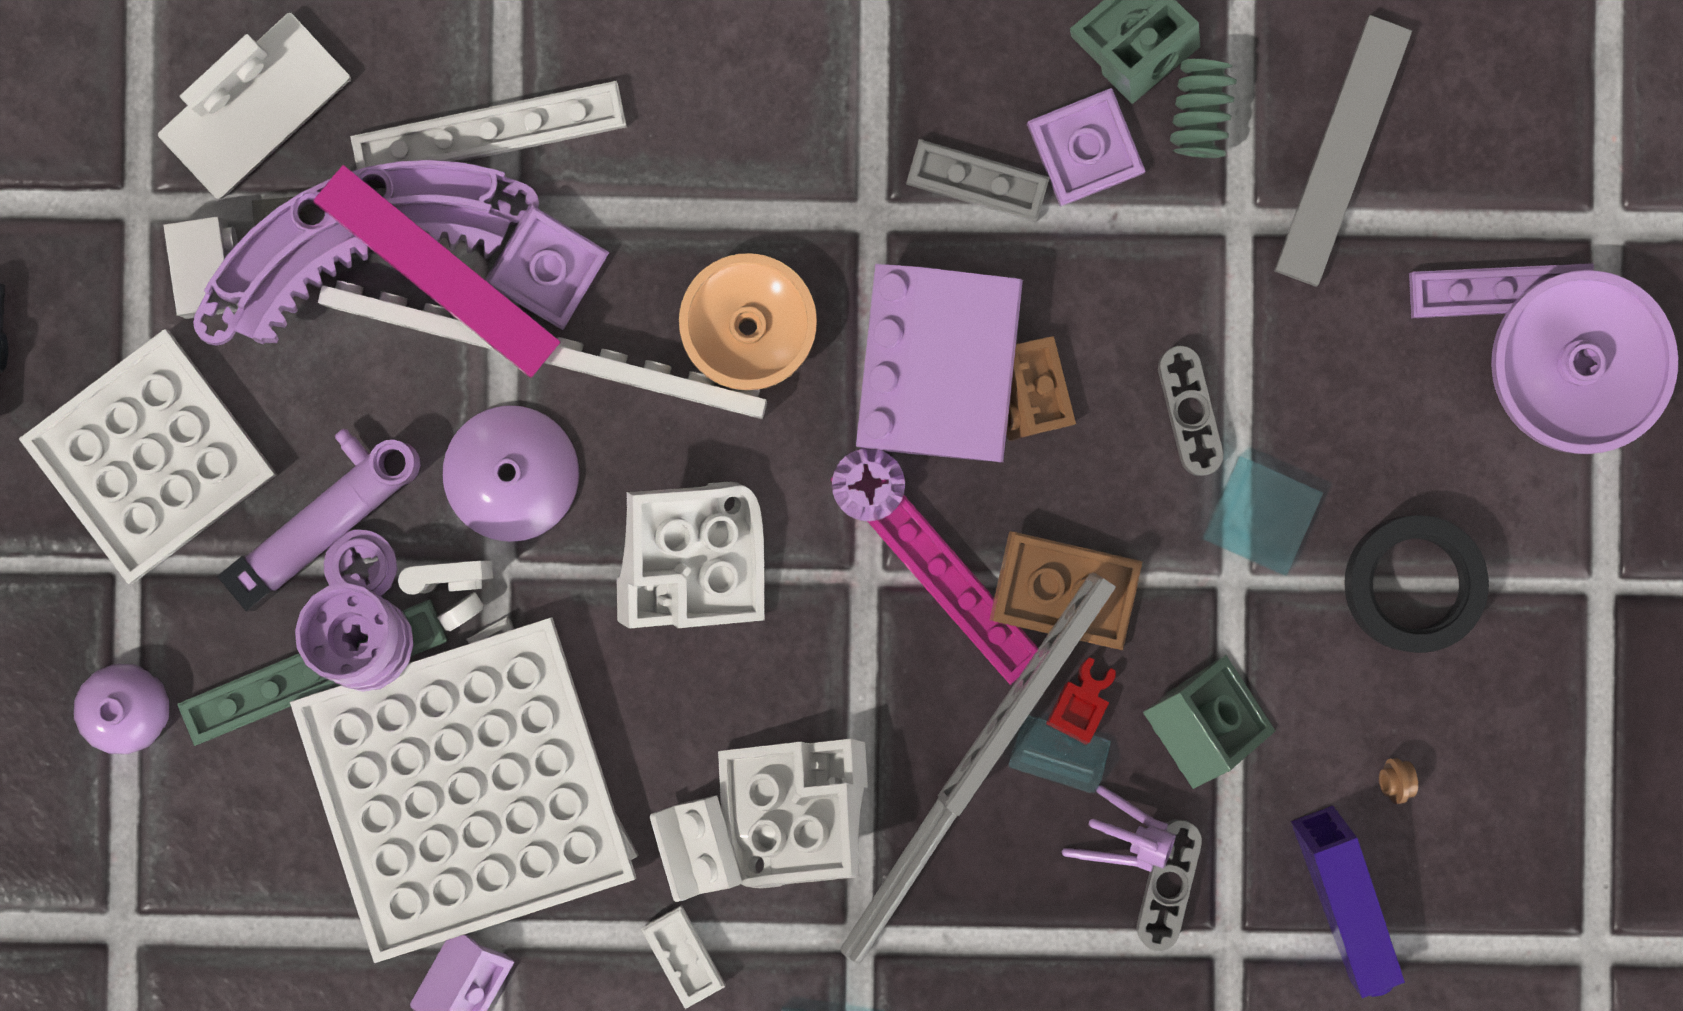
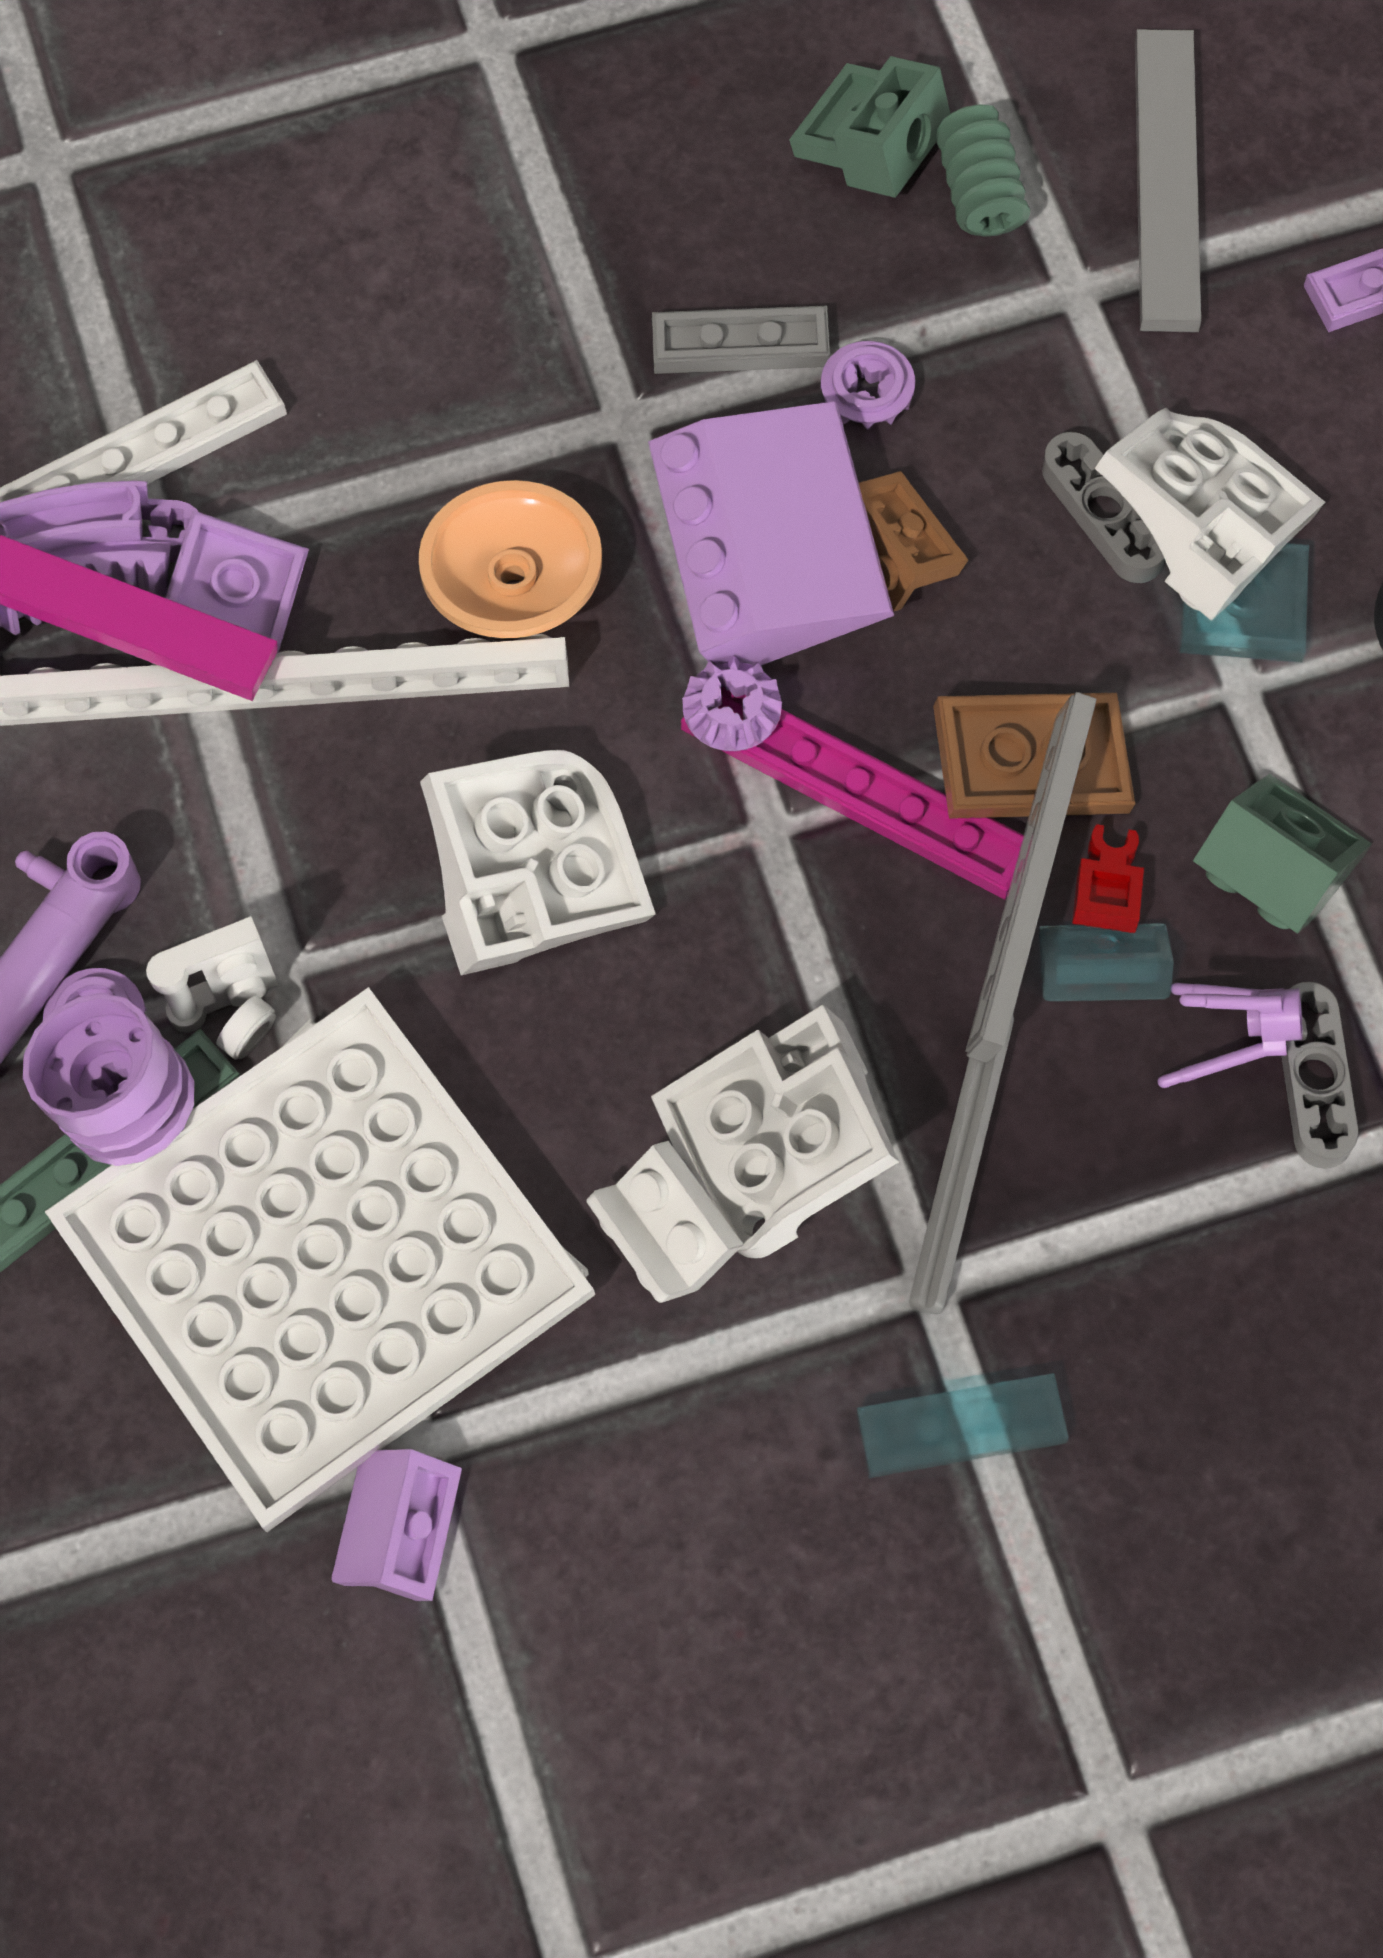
camera: 15 degrees left, 20 degrees down
(543, 479) = (277, 877): lavender dish -> none
(683, 957) = (696, 1381): white plate -> none
(1070, 236) = (874, 363): none -> lavender gear
(1086, 147) = (858, 266): lavender tile -> none
(1260, 446) = (1208, 502): none -> white slope

